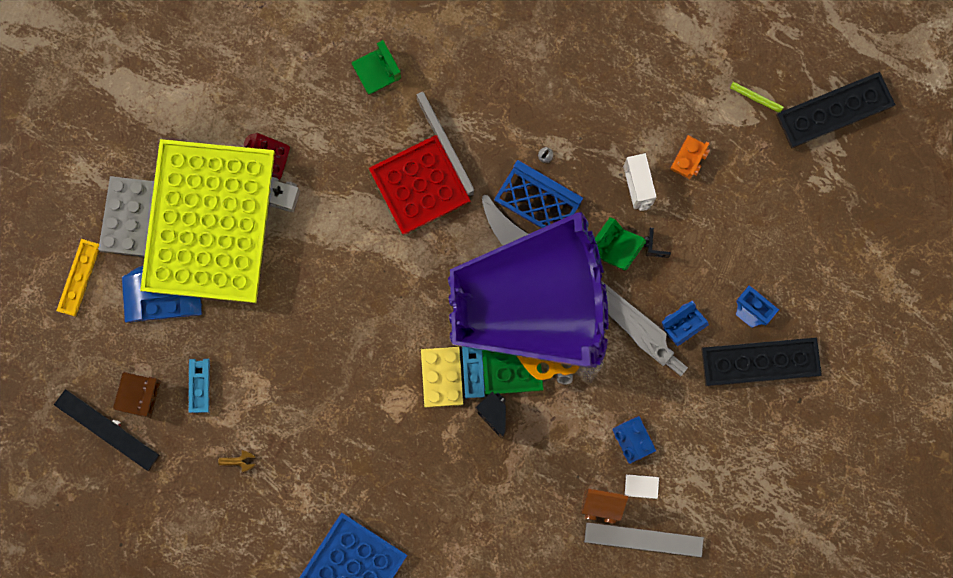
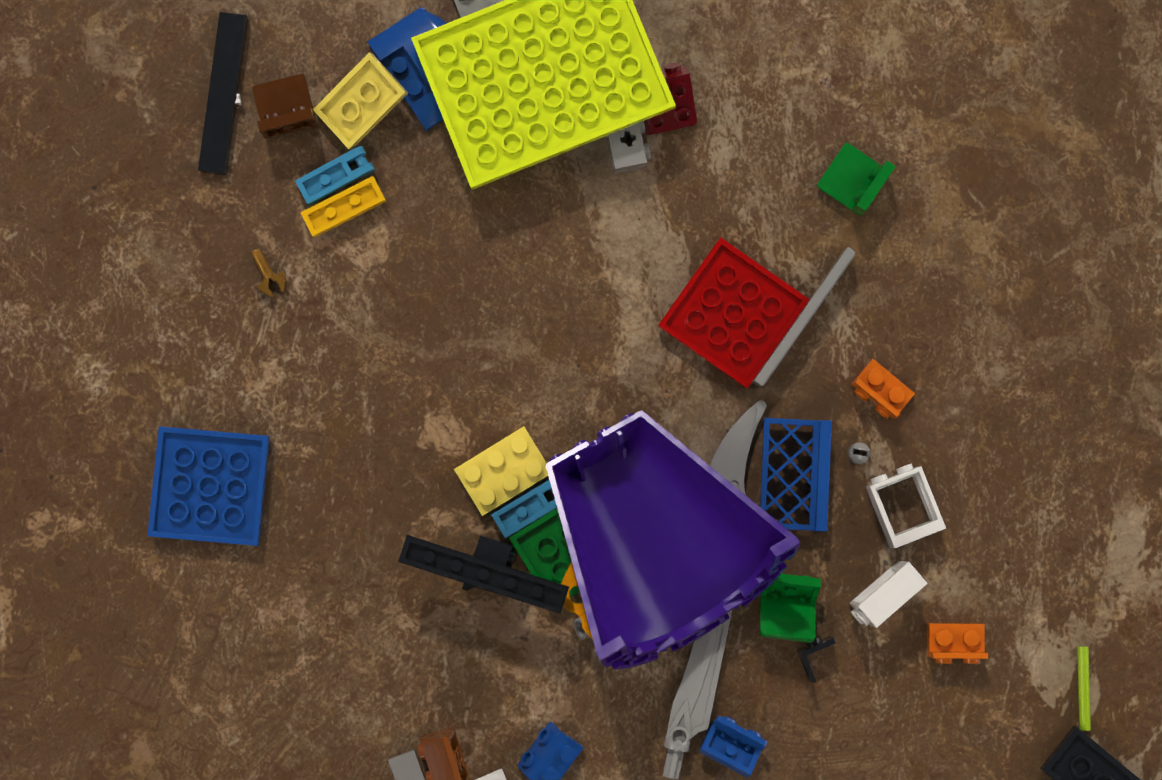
camera: 60 degrees right, 5 degrees up
(161, 344) = (360, 101): none -> light yellow plate
(222, 390) = (343, 207): none -> yellow plate
(500, 417) = (483, 574): none -> black tile
(514, 121) = (882, 389): none -> orange bracket
(609, 130) = (934, 525): none -> white window

